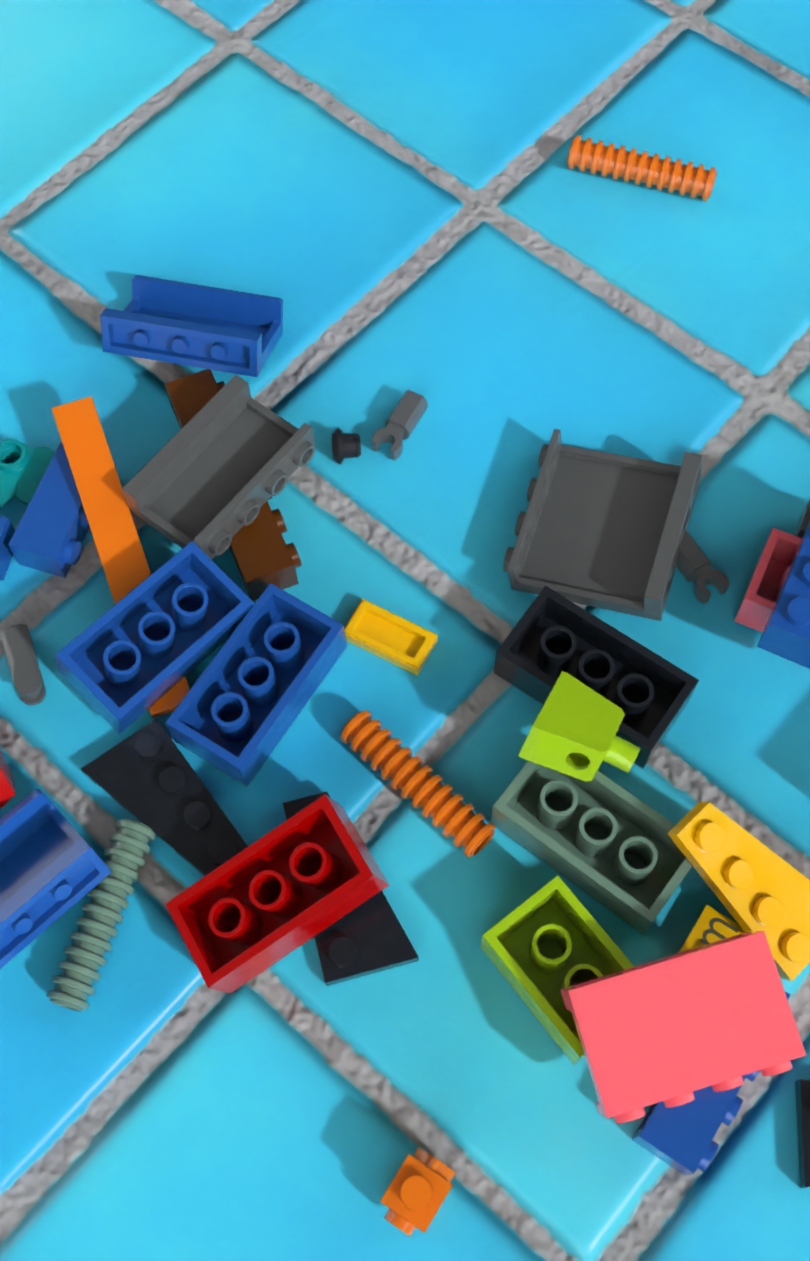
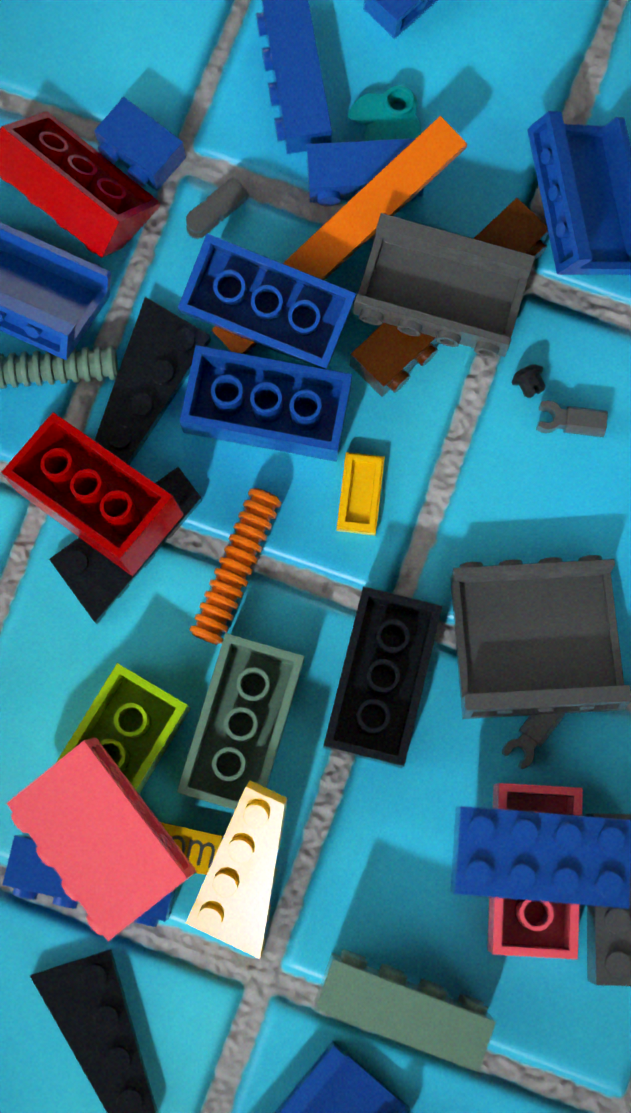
camera: 65 degrees right, 15 degrees up
(578, 732) = (310, 678): lime torso -> none

